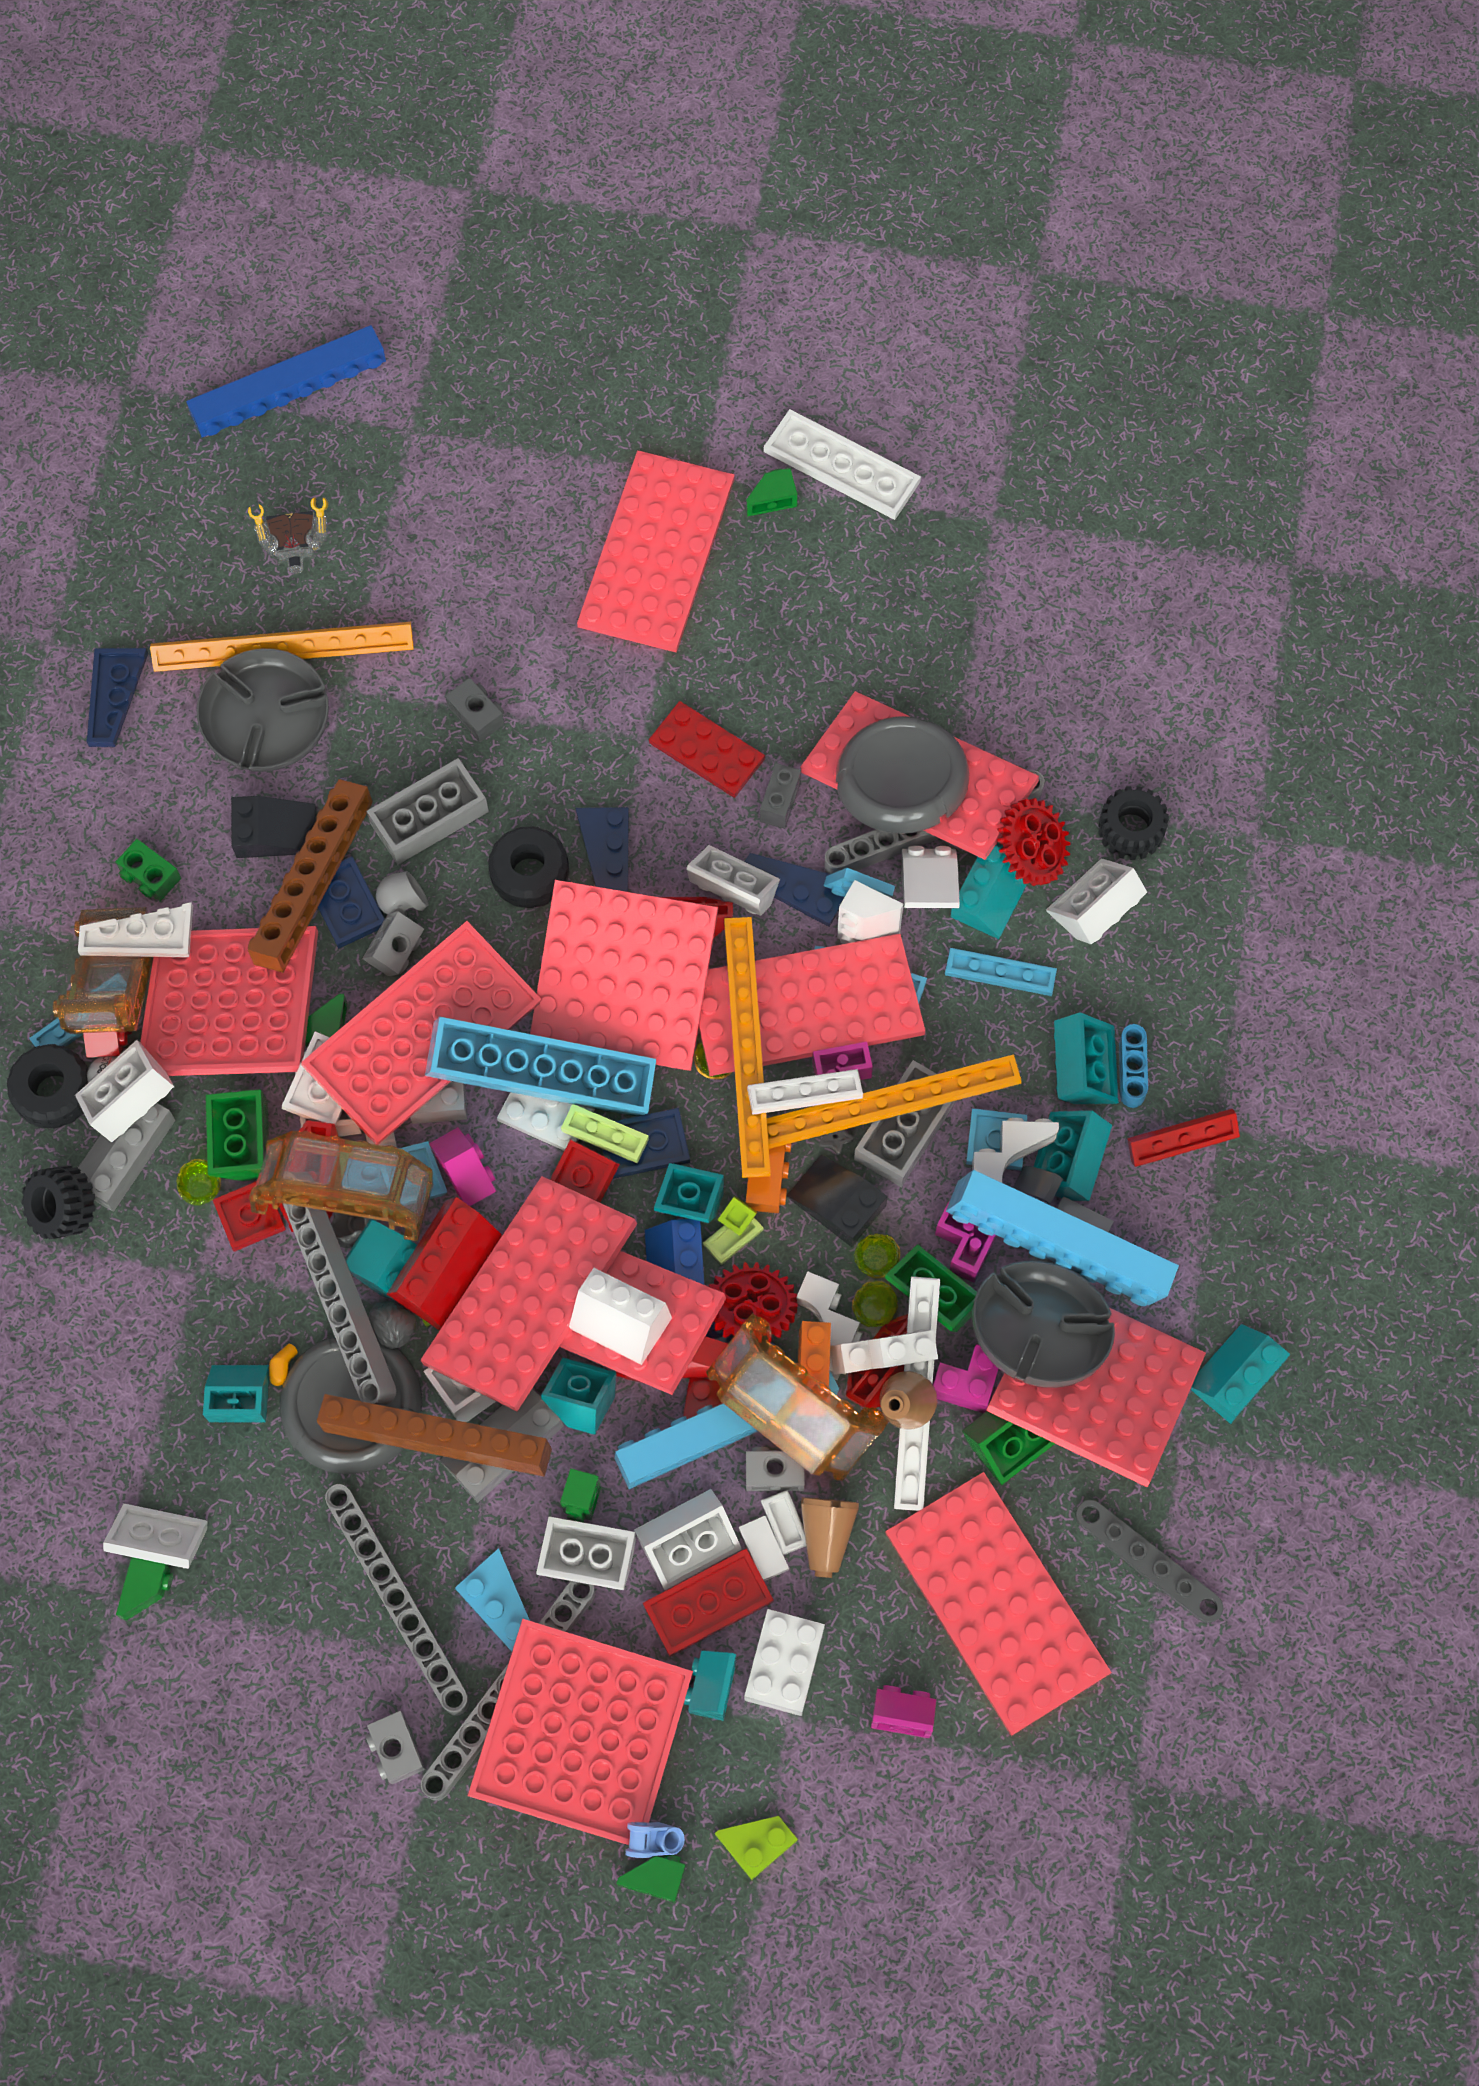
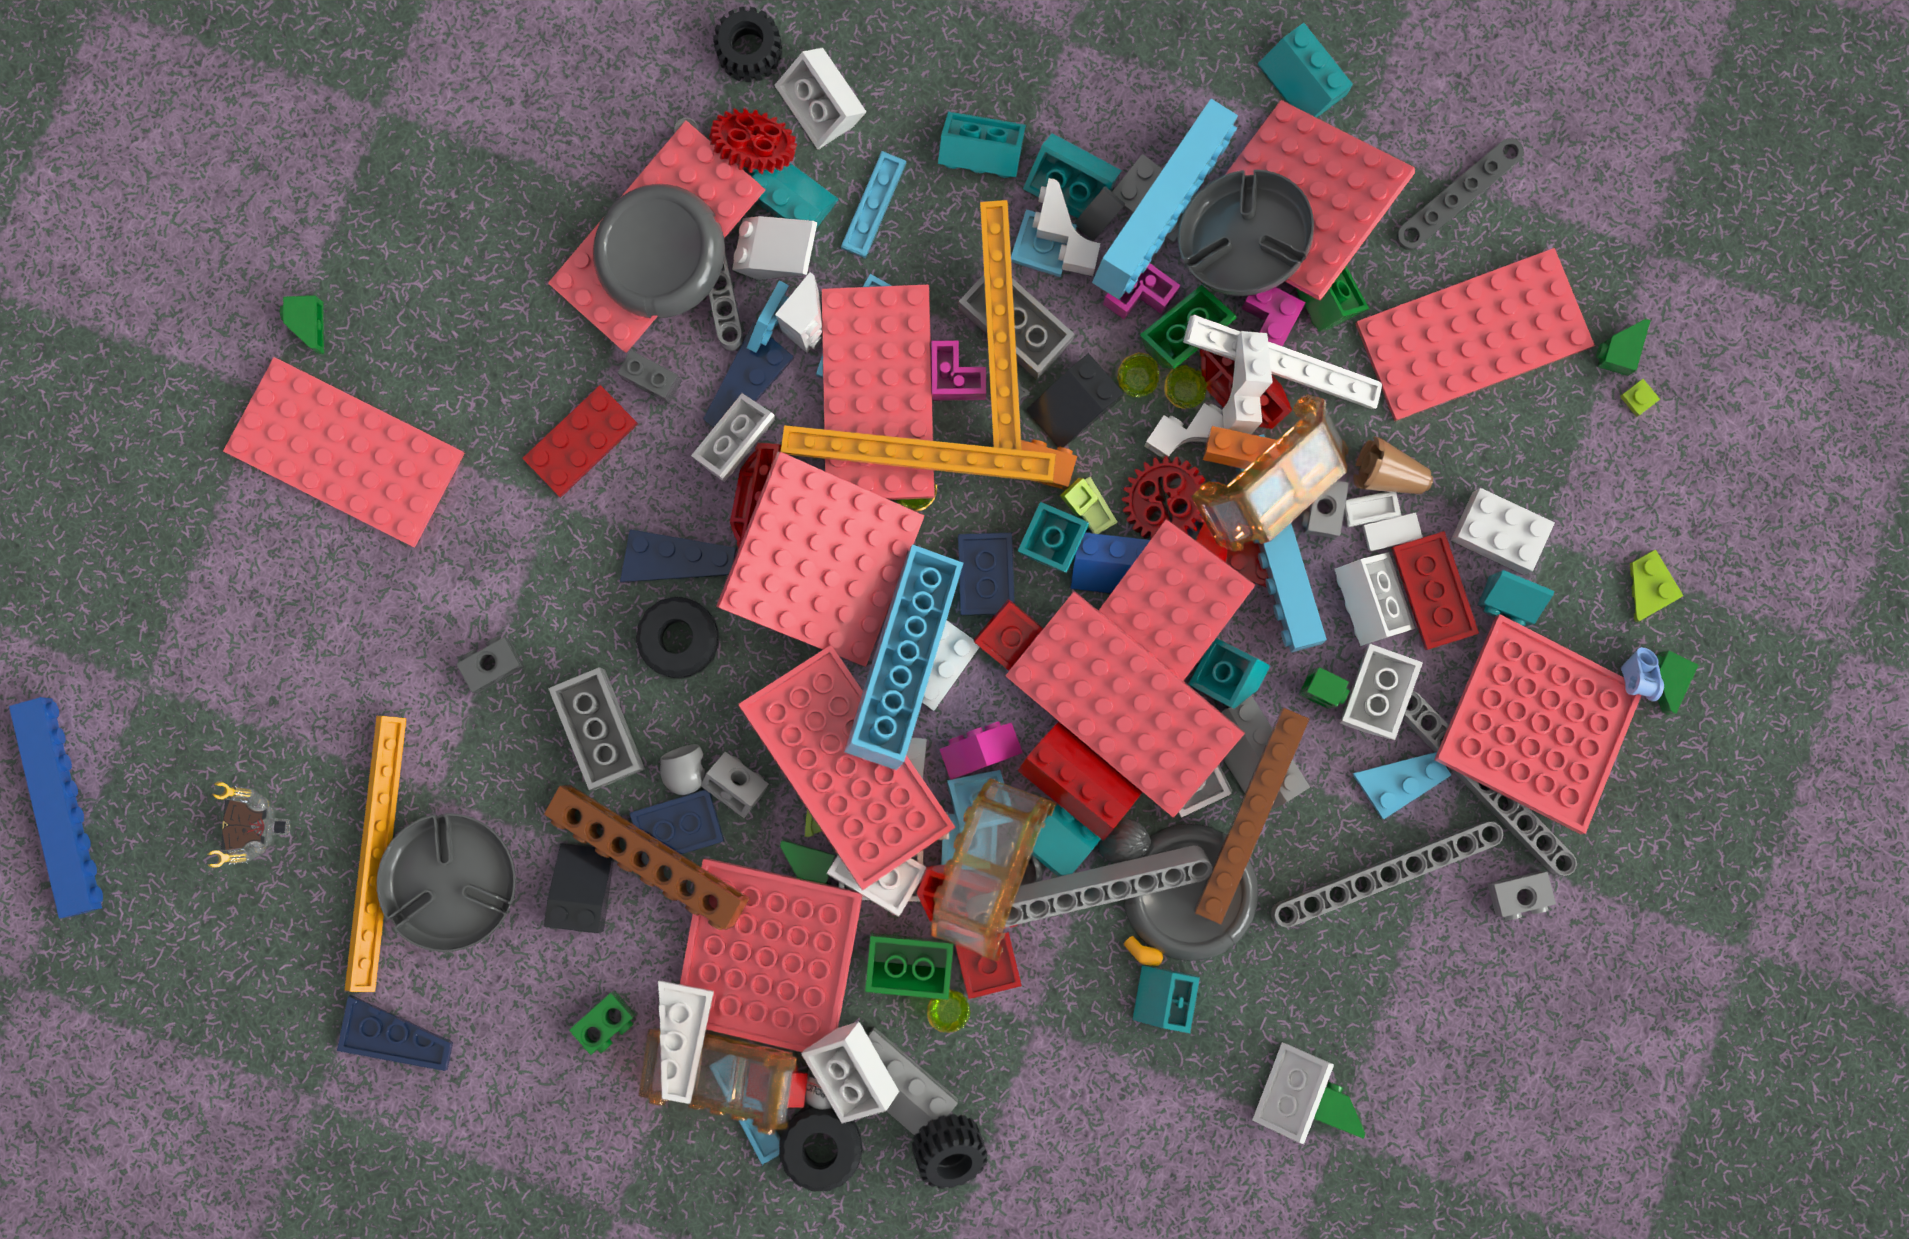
camera: 80 degrees left, 15 degrees up
(604, 1133) = (974, 607): yellowish green plate -> none
(619, 1316) = (1174, 621): white slope -> none
(805, 1091) = (979, 406): white tile -> none
(842, 464) = (285, 246): white plate -> none
(904, 1712) = (1565, 434): dark pink slope -> none
(908, 1400) = (1298, 371): medium nougat cone -> none
(965, 1797) = (1639, 397): none -> lime plate
(1015, 1766) = (1624, 349): none -> green slope
(1133, 1053) = (985, 92): dark azure beam -> none
(1183, 1137) = (1074, 71): red plate -> none

